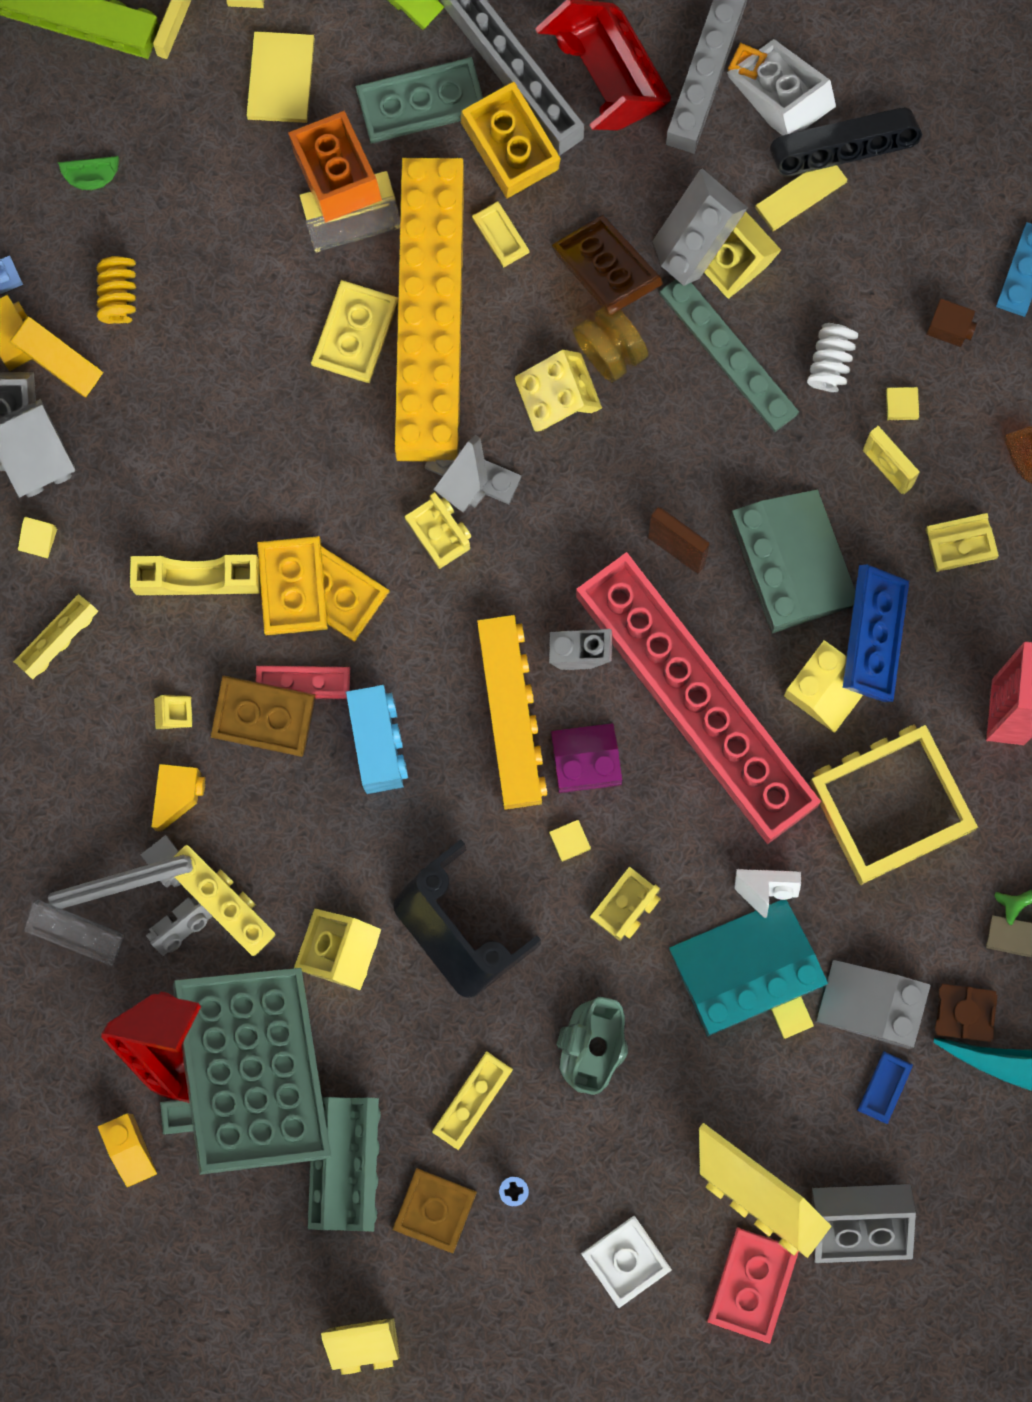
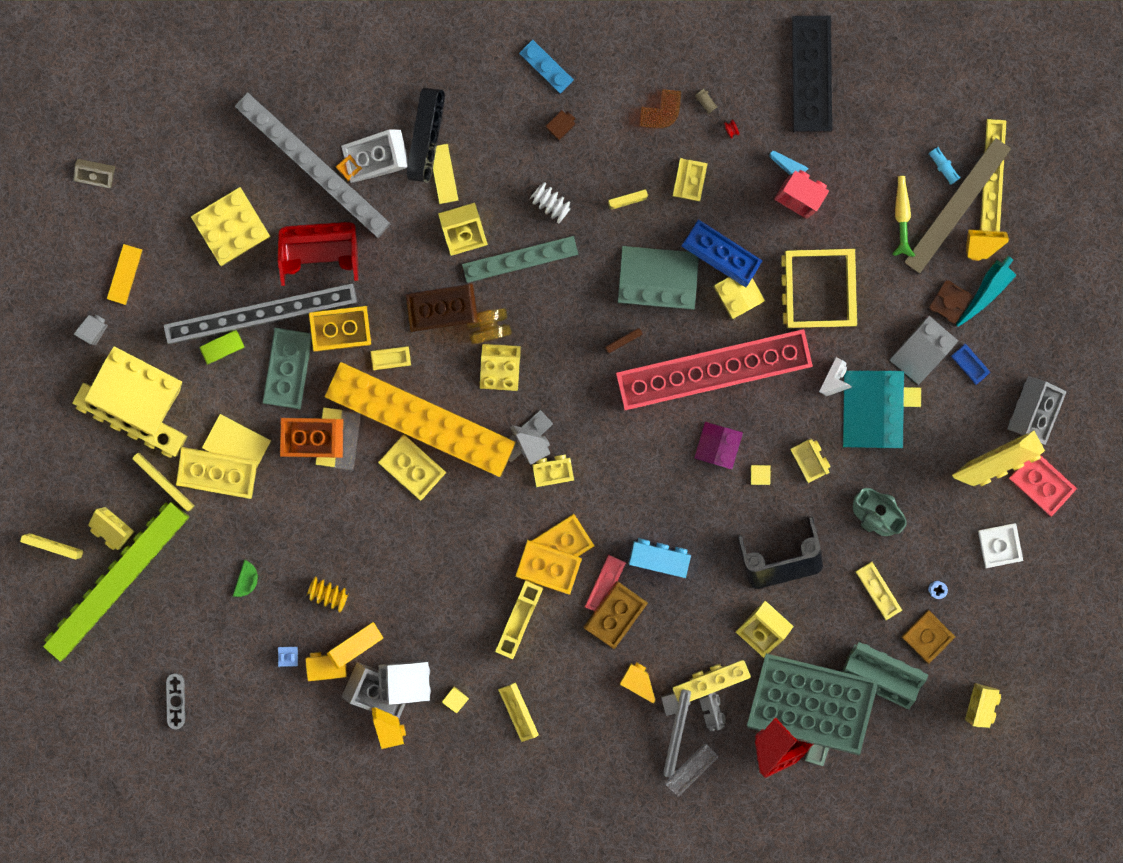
camera: 70 degrees left, 10 degrees up
(127, 1149) = (823, 788): yellow slope -> none
(173, 712) = (590, 664): light yellow slope -> none
(227, 65) = (216, 472): none -> light yellow tile
(510, 712) = (674, 476): yellow brick -> none
(580, 649) = (658, 422): light grey slope -> none
(697, 228) = (443, 247): light grey slope -> none
(902, 403) = (594, 174): light yellow tile -> none

